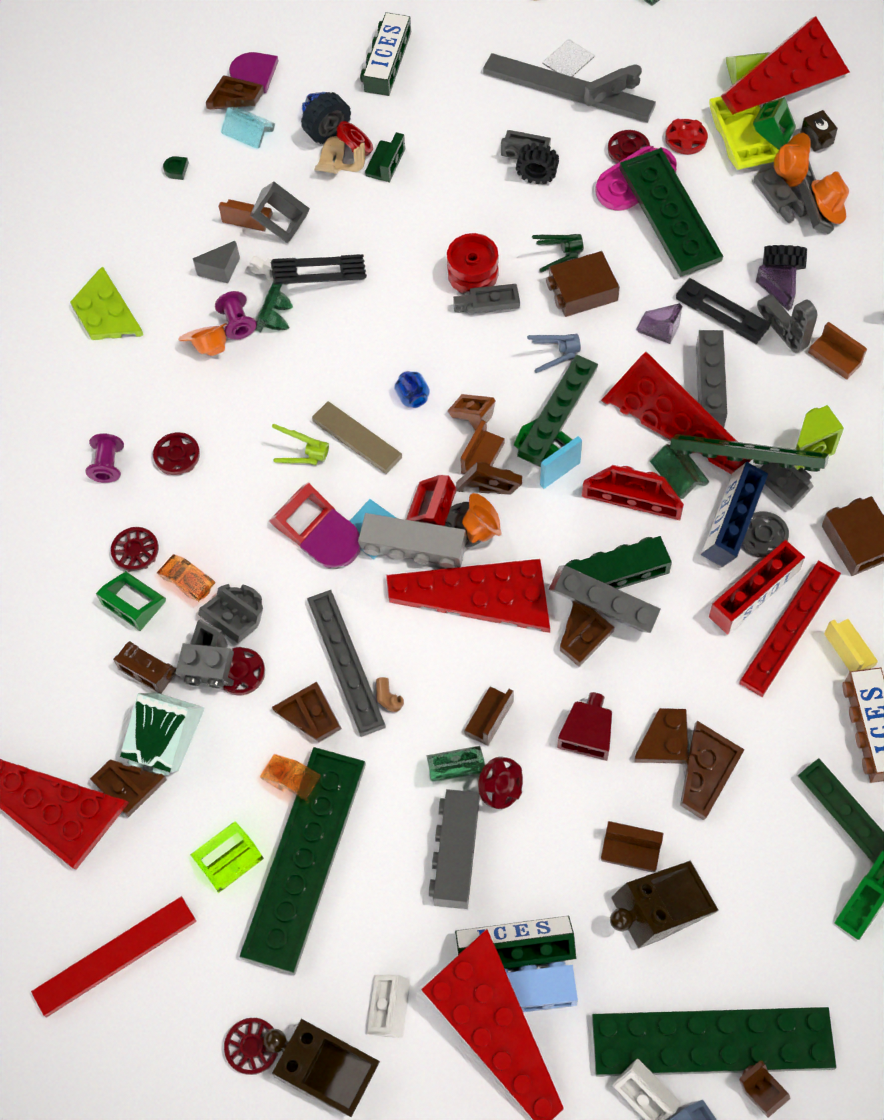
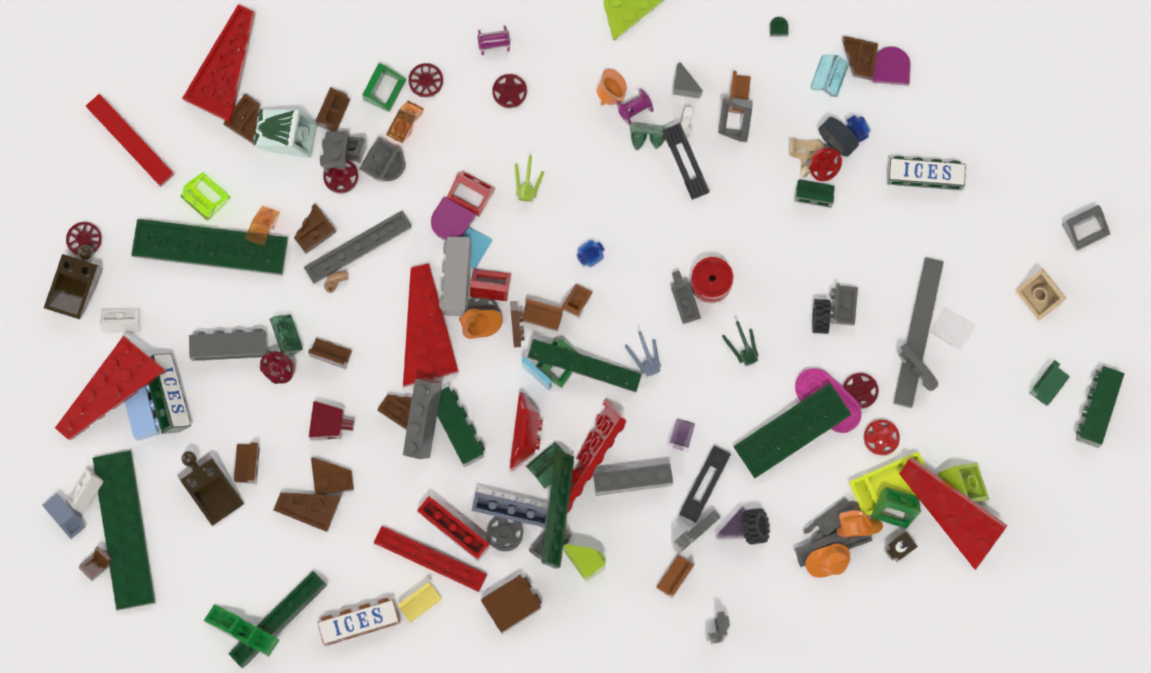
camera: 75 degrees right, 15 degrees up
(357, 437) = (543, 220): dark tan tile -> none
(583, 284) = (709, 369): reddish brown brick -> none

